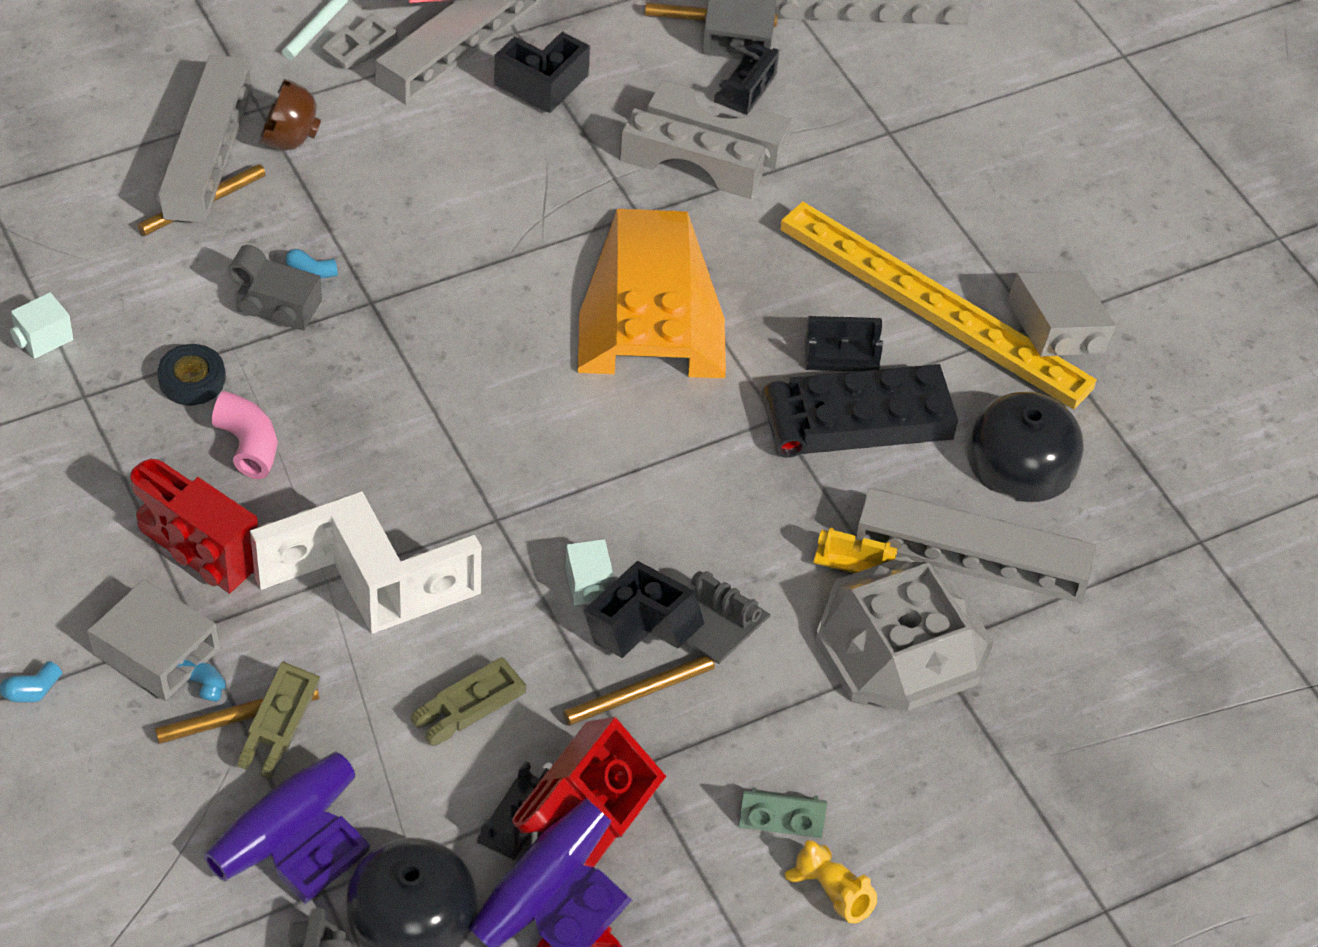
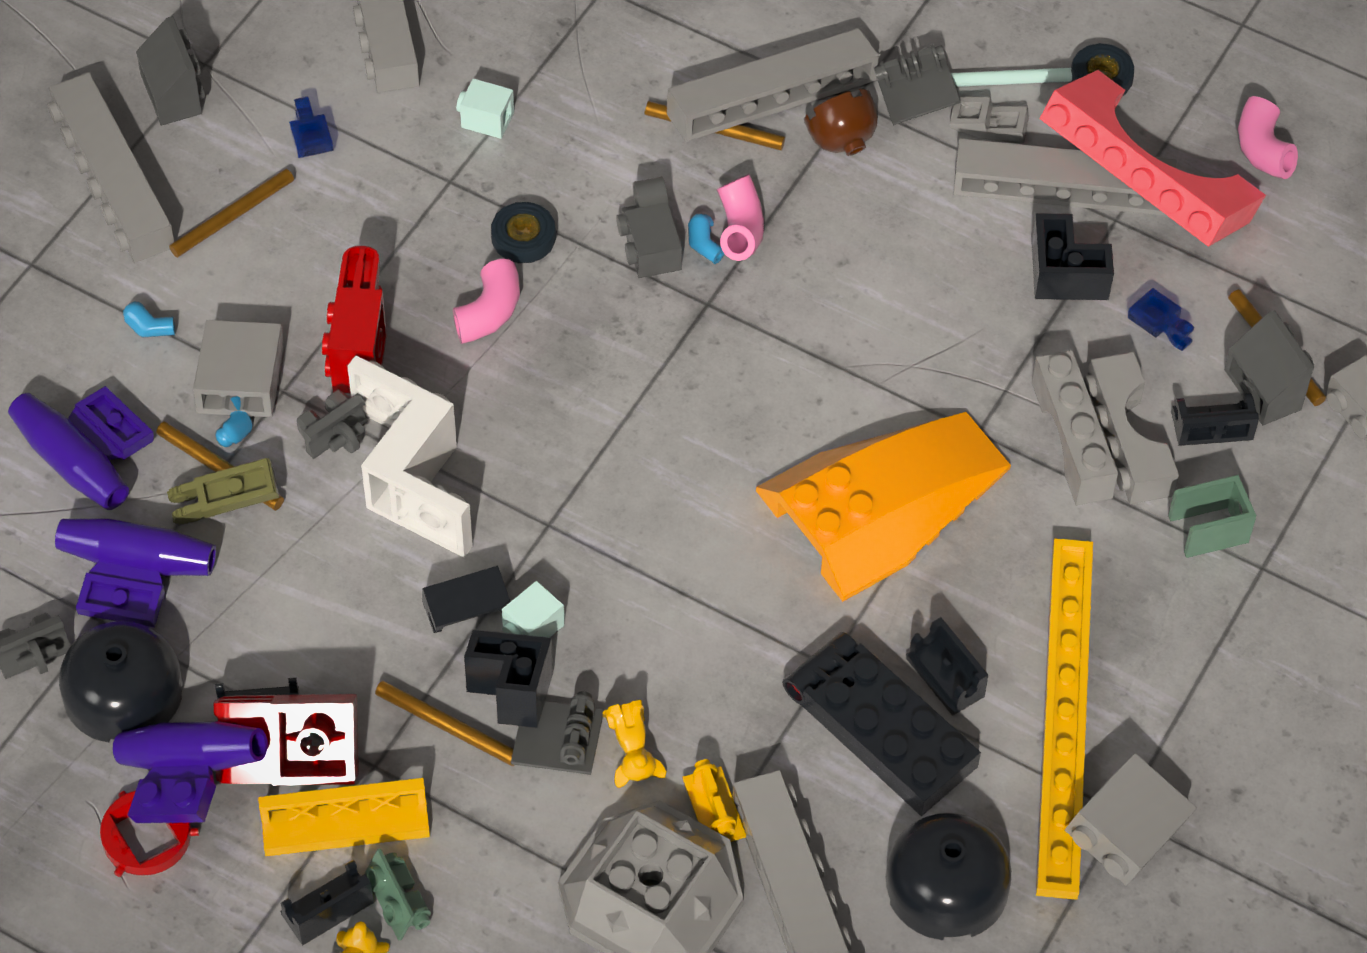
camera: 60 degrees right, 5 degrees up
(126, 799) = (84, 442): none -> dark purple plate
(270, 589) = (335, 429): none -> dark grey hips
(290, 56) = (916, 84): none -> dark grey hinge
(317, 229) = (743, 218): none -> bright pink cylinder
(469, 700) = (342, 609): olive hinge -> none
(536, 608) = (464, 598): none -> black hinge
(632, 56) = (1159, 314): none -> clear blue plate
(682, 810) = (344, 819): none -> yellow fence
(752, 569) = (631, 733): none -> yellow animal
(755, 864) = (328, 904): none -> black hinge
(826, 113) = (1209, 498): none -> sand green piece

